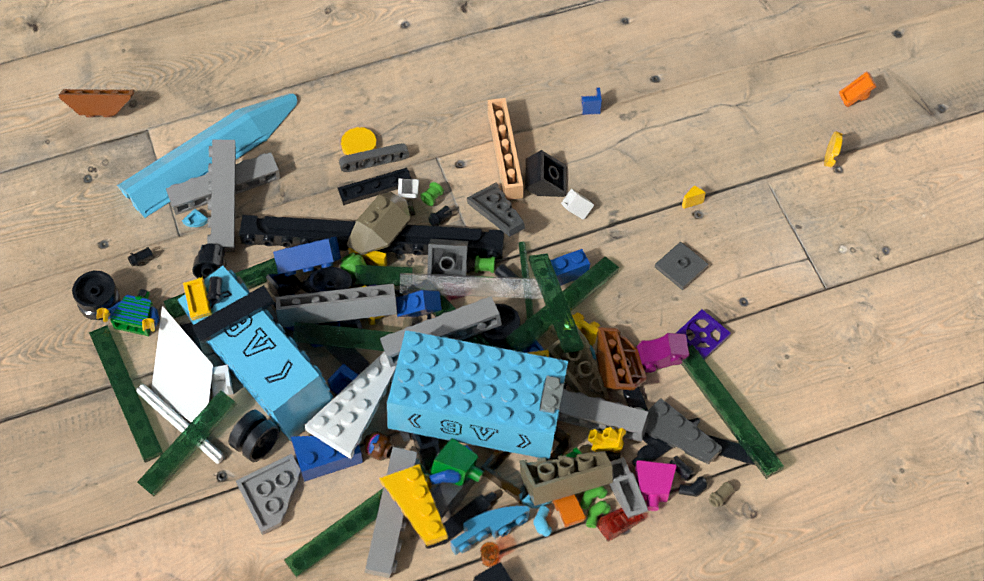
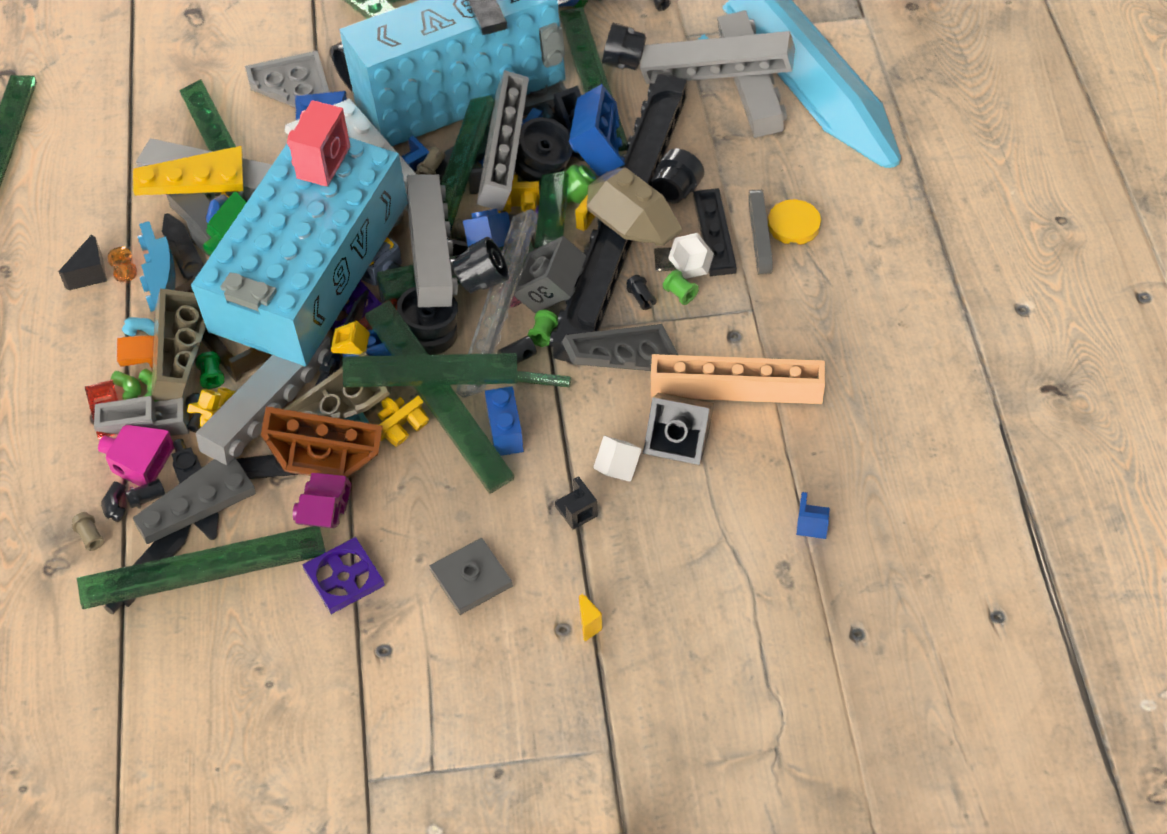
camera: 105 degrees right, 5 degrees down
(338, 206) = (677, 175): none -> black piece
(355, 360) = (430, 163): none -> dark tan pin
(427, 363) = (319, 143): none -> coral brick
(463, 289) = (481, 266): none -> black piece
(616, 219) = (578, 505): none -> black panel

